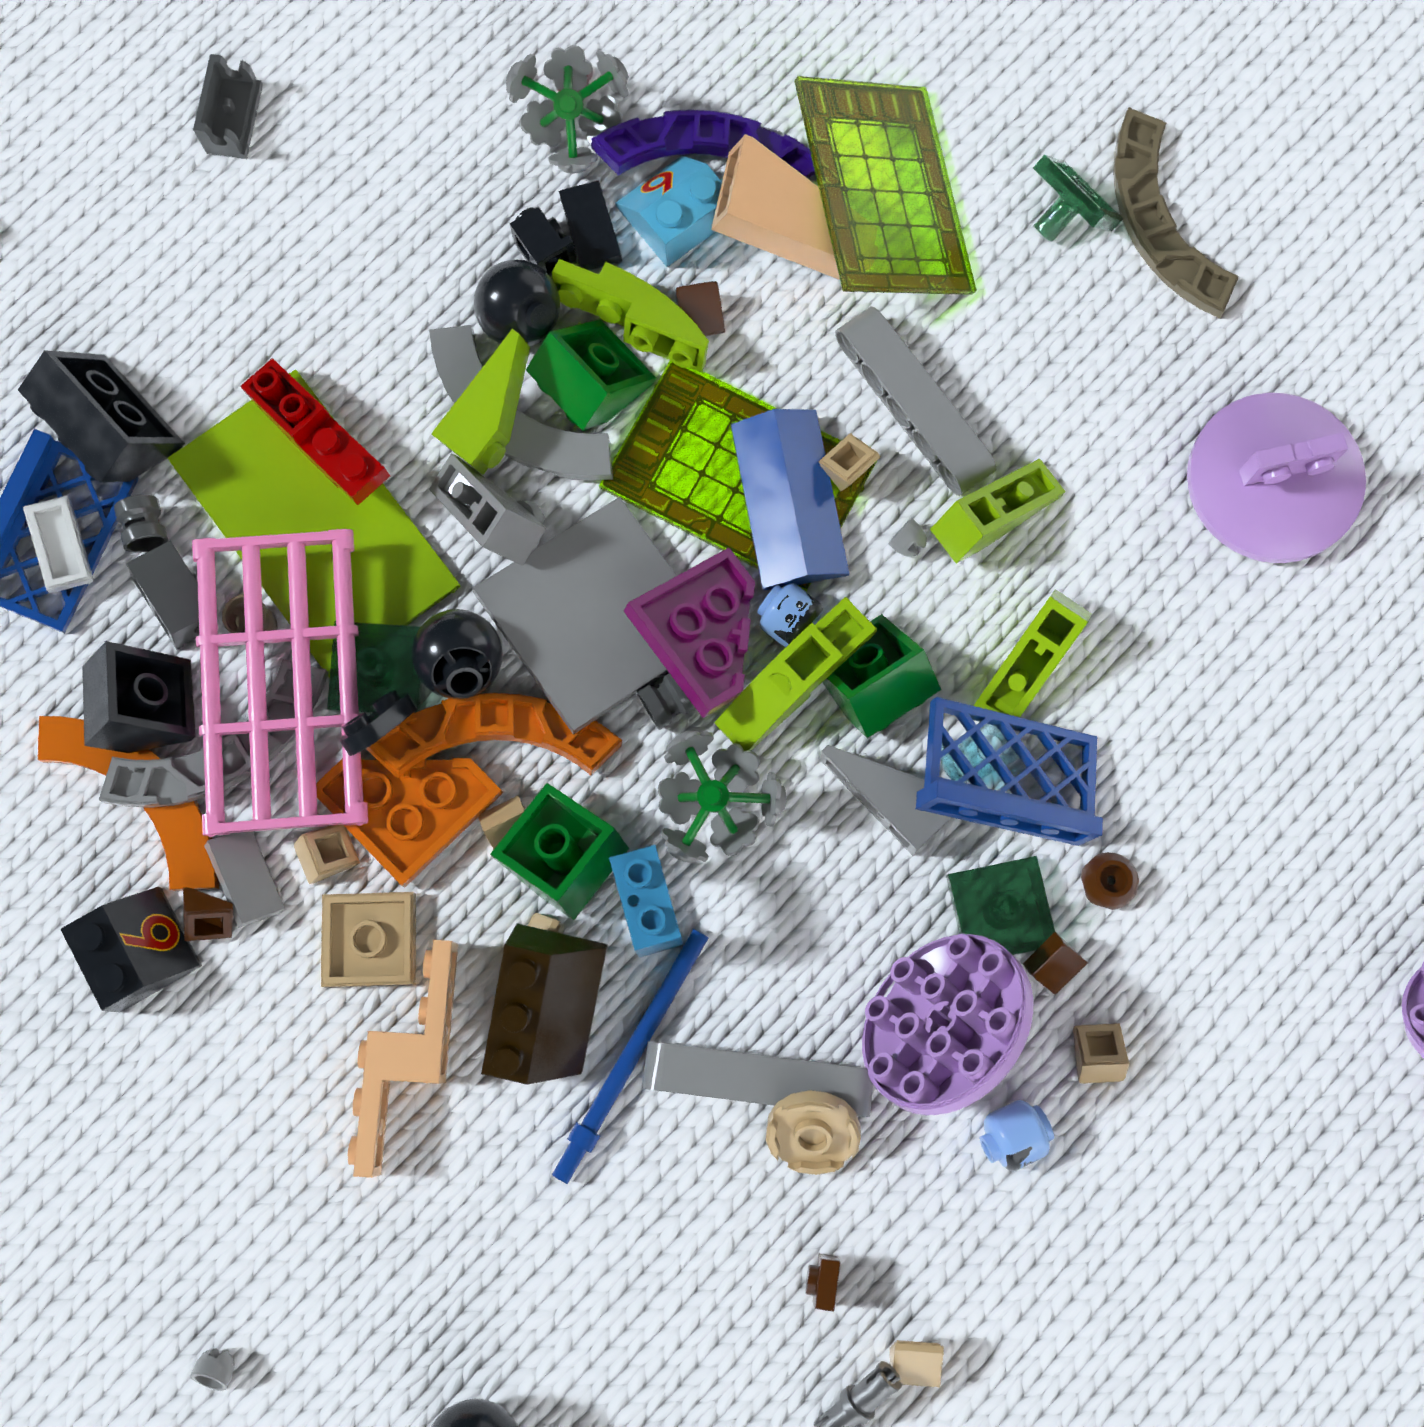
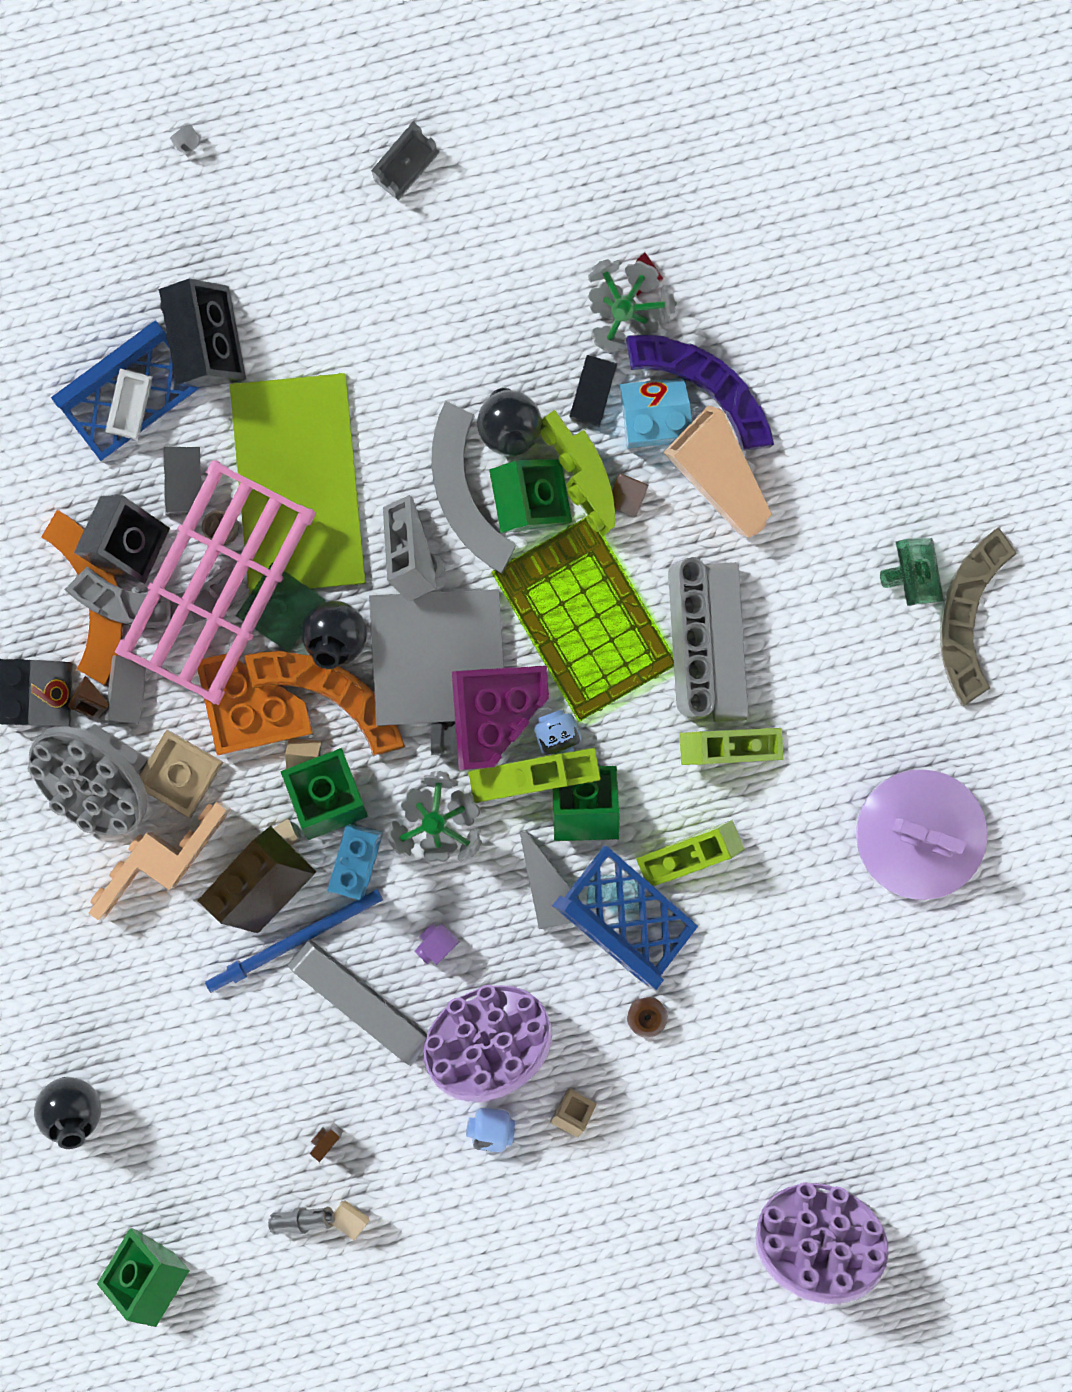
camera: 30 degrees right, 10 degrees up
(140, 523) = (191, 414): dark grey wheel -> none
(257, 1006) = (90, 777): none -> light grey bracket
(315, 431) = (331, 429): red slope -> none
(325, 852) = (183, 704): tan slope -> none
(366, 730) = (253, 651): black plate -> none
(485, 412) = (444, 486): lime slope -> none
(541, 239) = (553, 385): black brick -> none
(789, 498) = (605, 656): slope -> none
(805, 948) = (436, 943): none -> medium lavender plate
(813, 1132) = (371, 1054): tan tile -> none
(848, 461) = (656, 657): tan slope -> none
(868, 396) = (699, 623): none -> light grey beam
(884, 187) = (797, 487): clear neon green piece -> none
(904, 539) = (663, 729): light grey hinge -> none
(1003, 904) = (572, 992): clear green tile -> none
(1054, 963) = (579, 1045): reddish brown slope -> none

